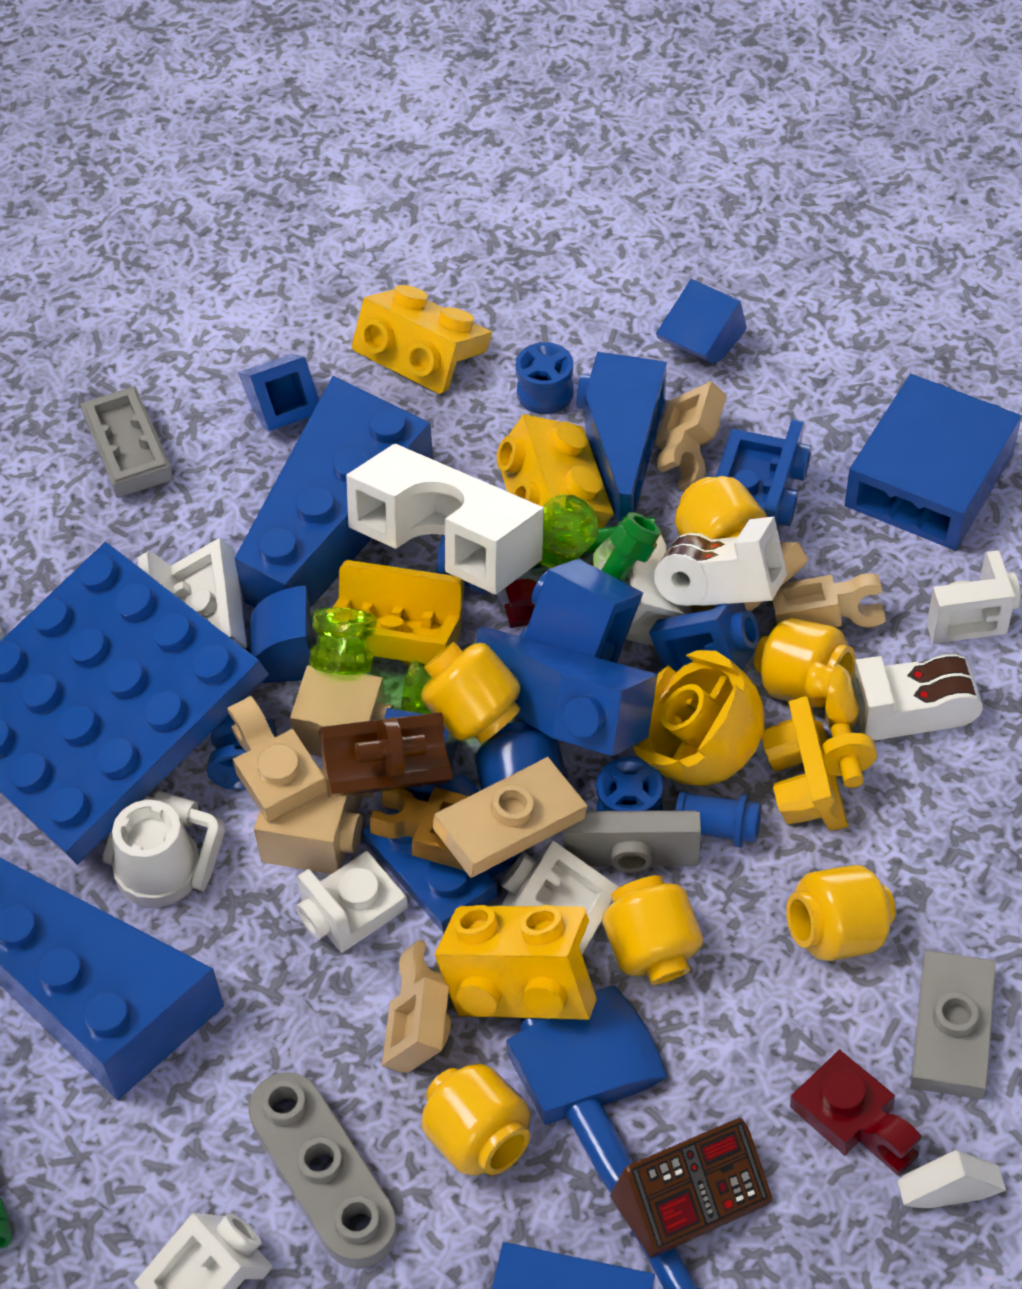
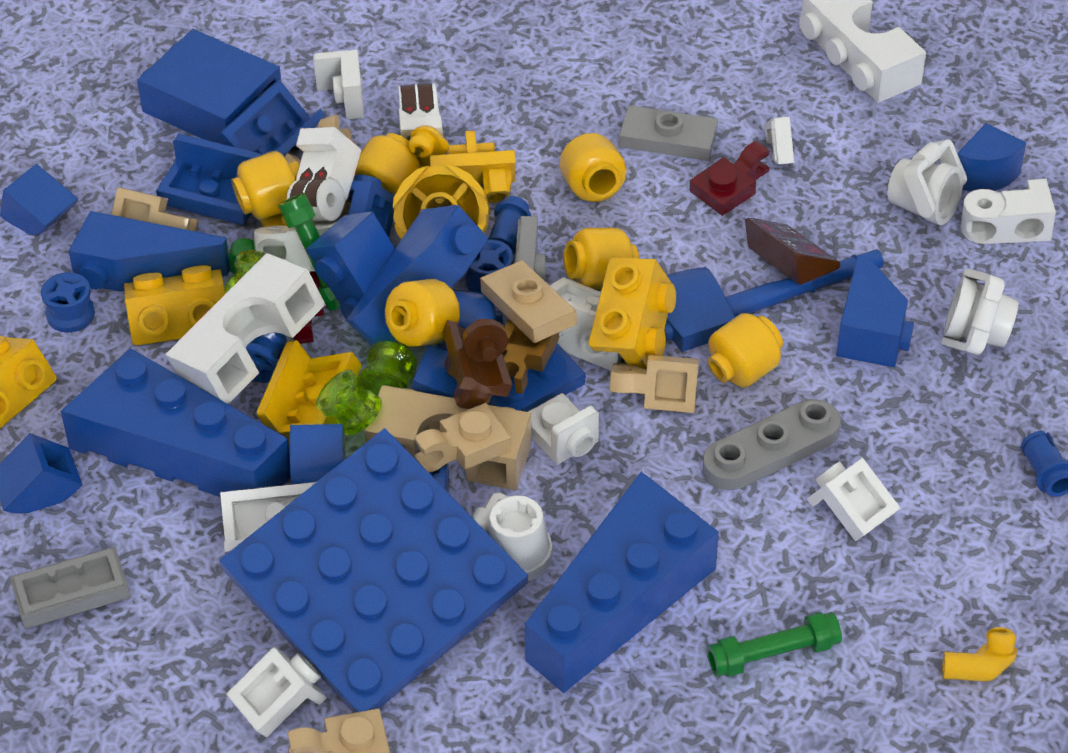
camera: 90 degrees left, 5 degrees down
(859, 527) = (269, 123): none -> blue bracket

